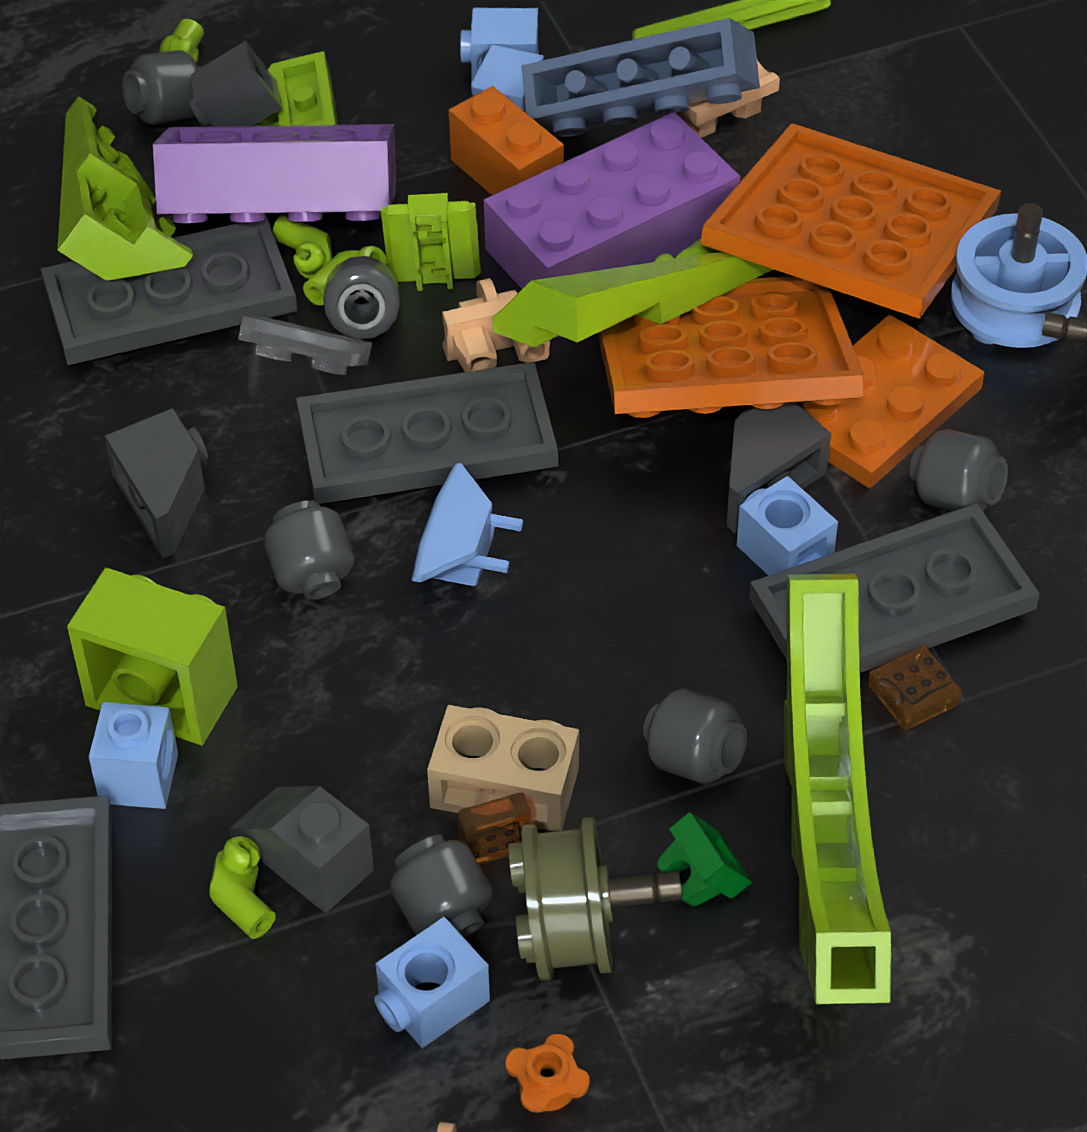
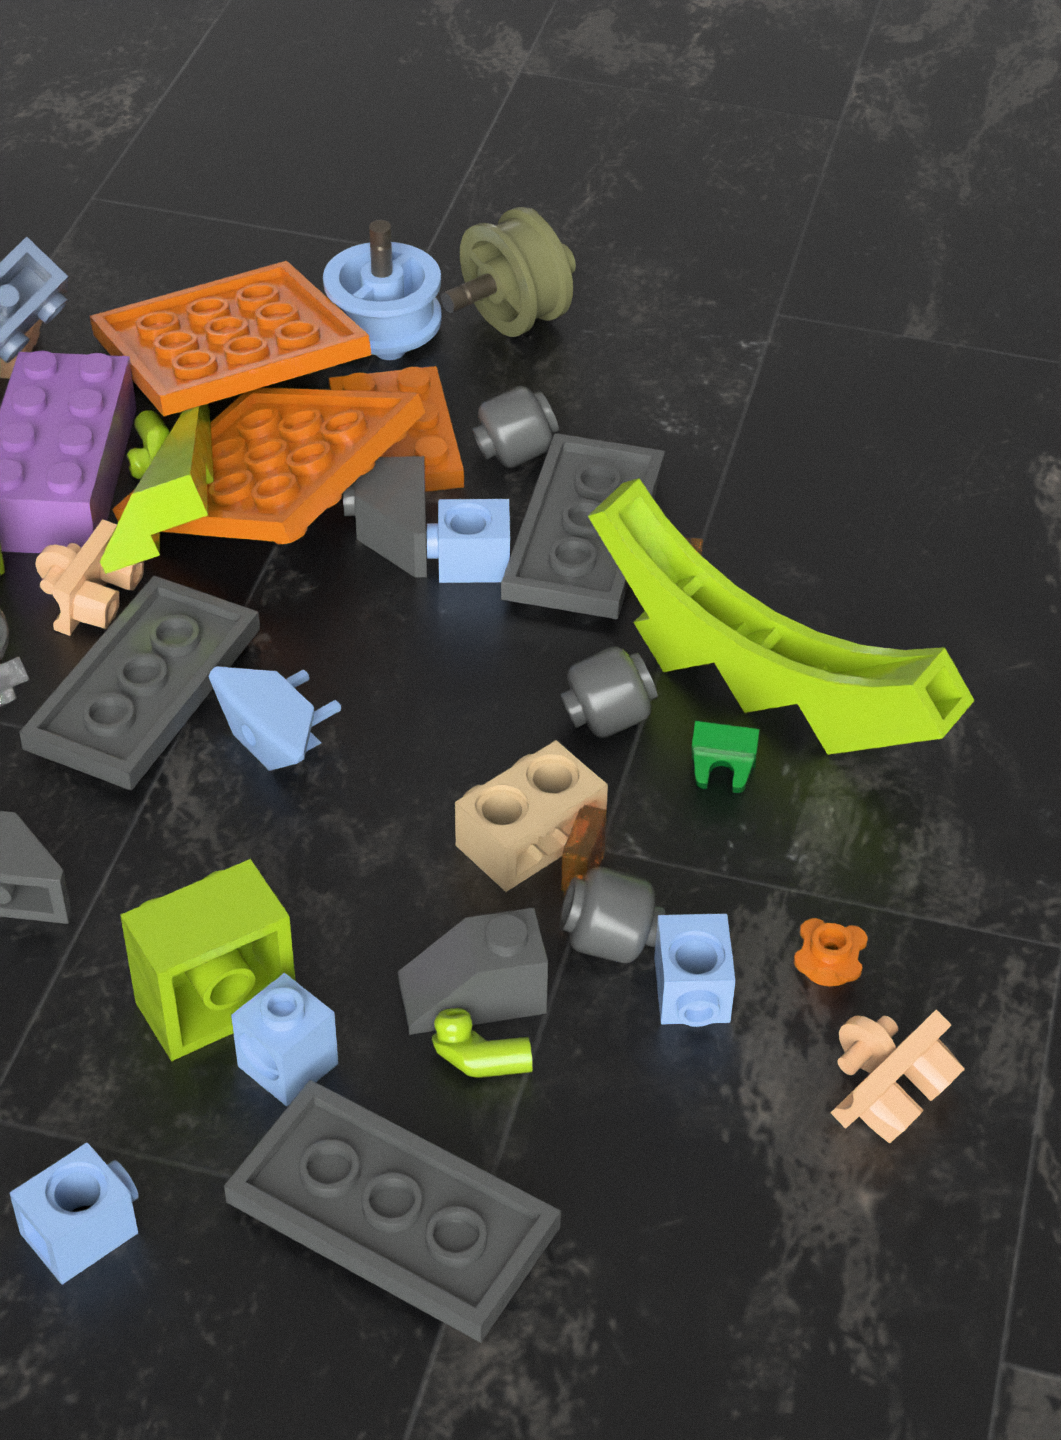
camera: 55 degrees left, 5 degrees down
(308, 549) = (188, 812): dark grey head -> none
(573, 897) = (710, 830): olive wheel -> none

